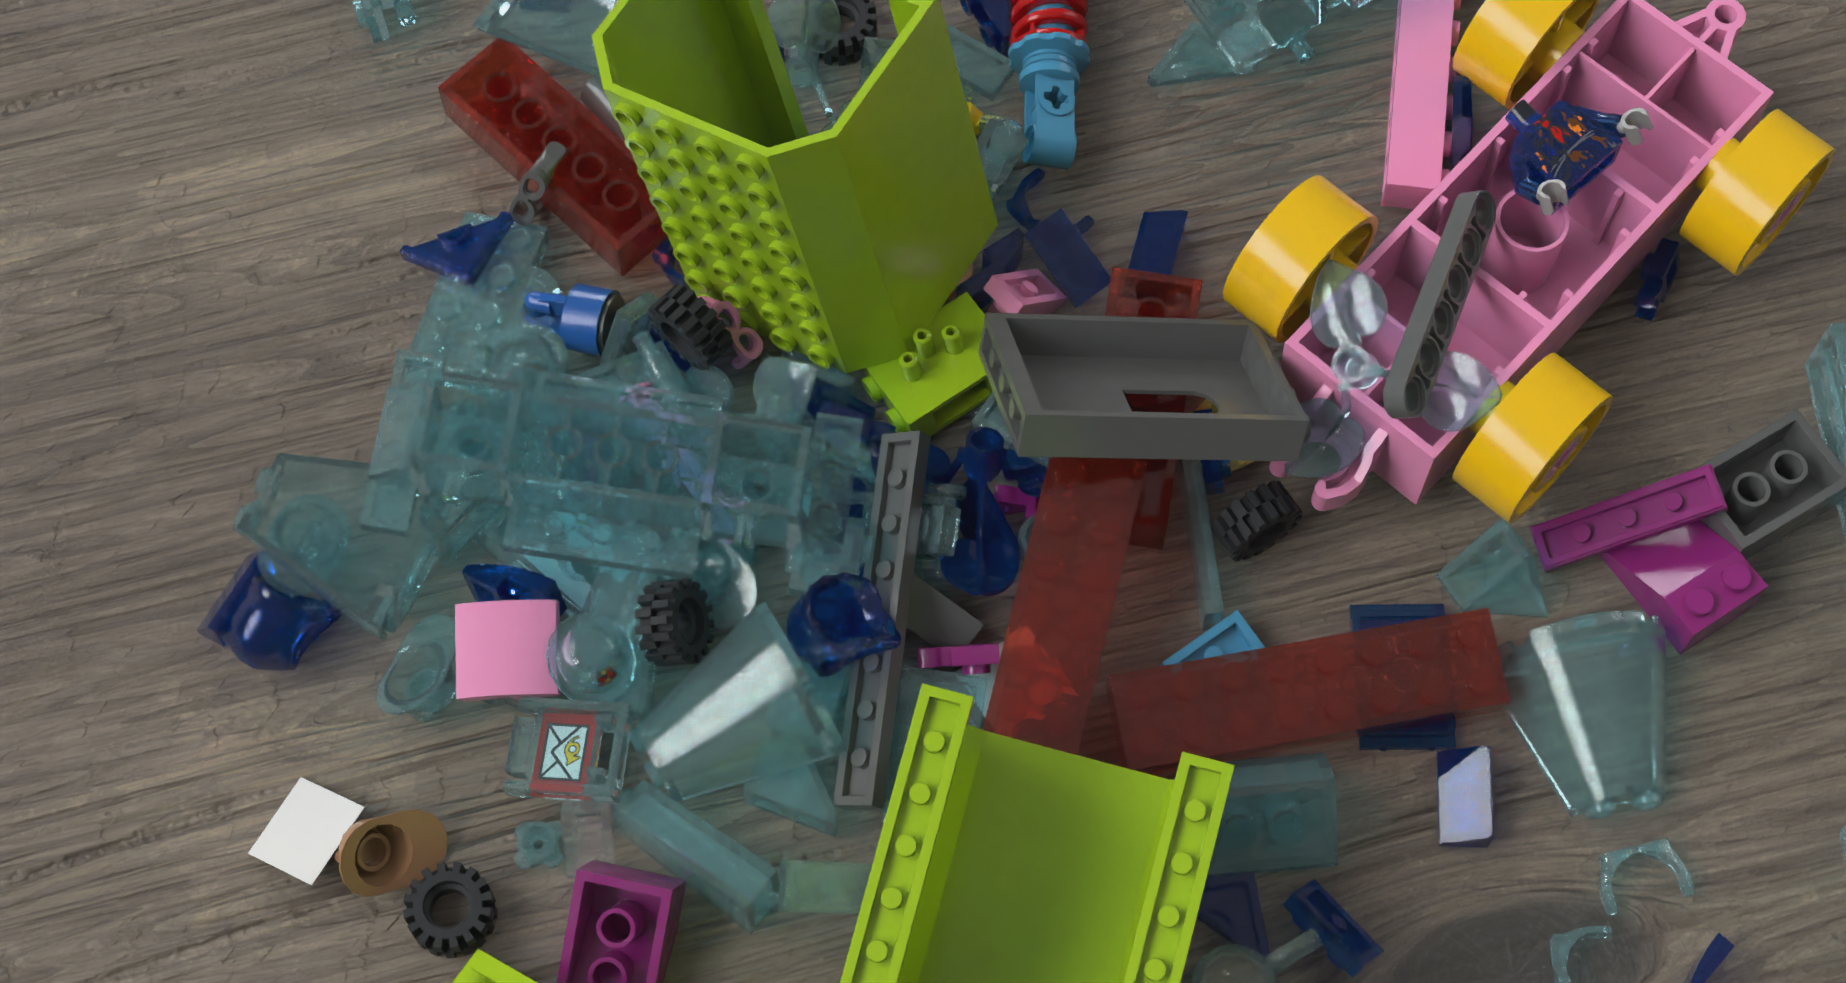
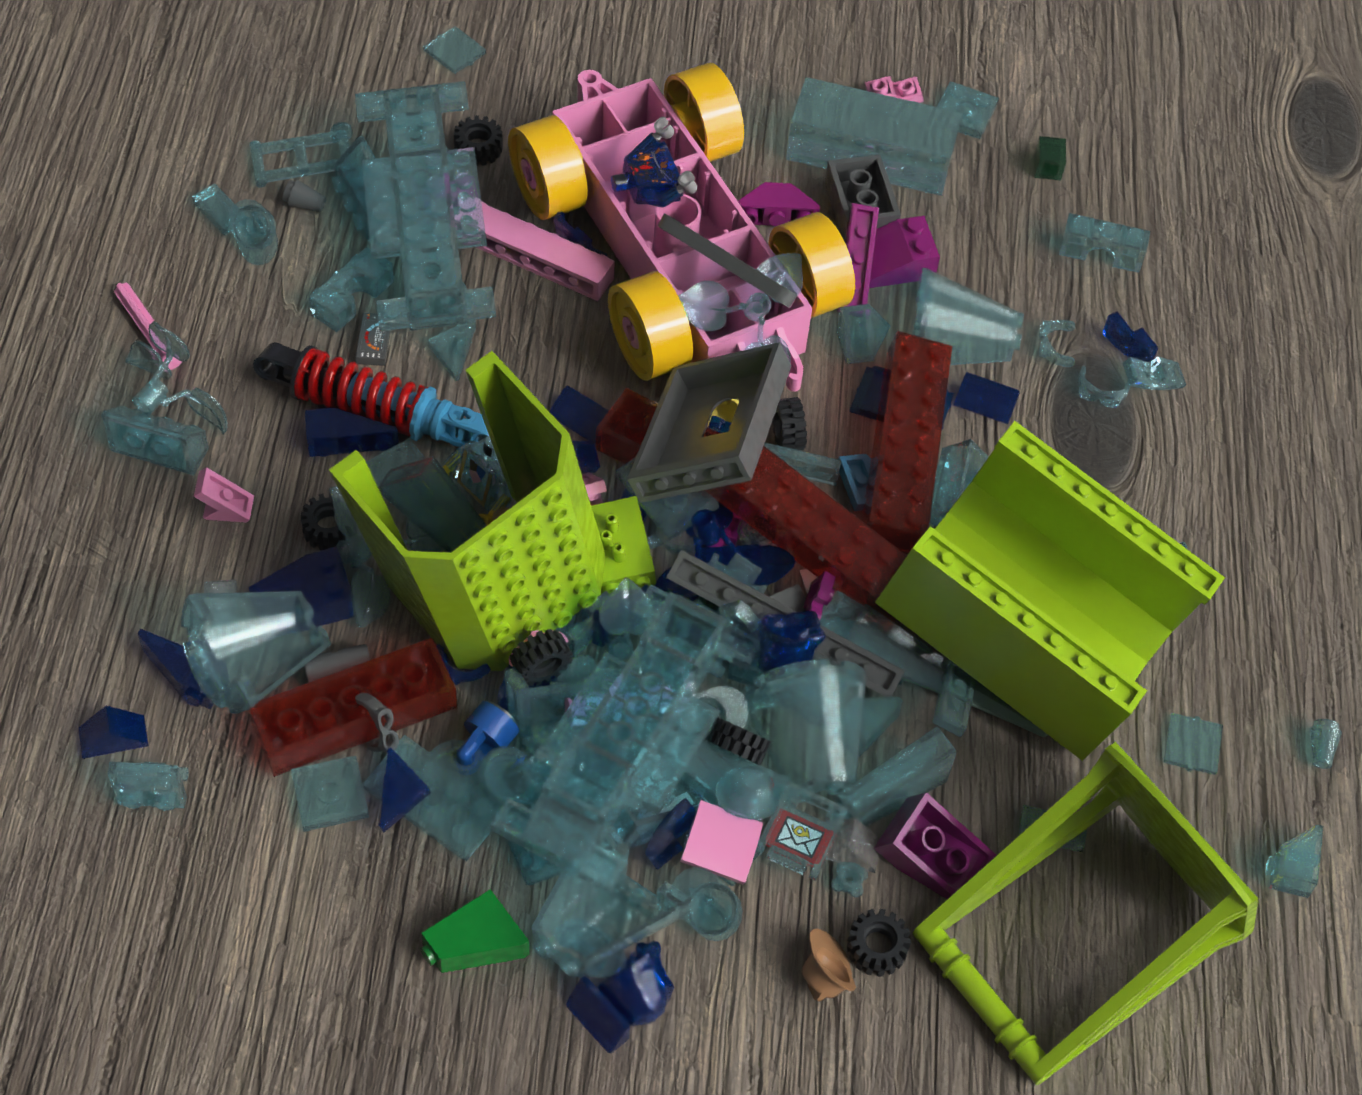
camera: 75 degrees left, 10 degrees down
(296, 408) = (474, 937): none -> green slope
(306, 830) = (791, 1016): white sticker -> none
(445, 183) = (330, 793): none -> clear light blue tile
(1682, 373) = (777, 204): none -> magenta slope

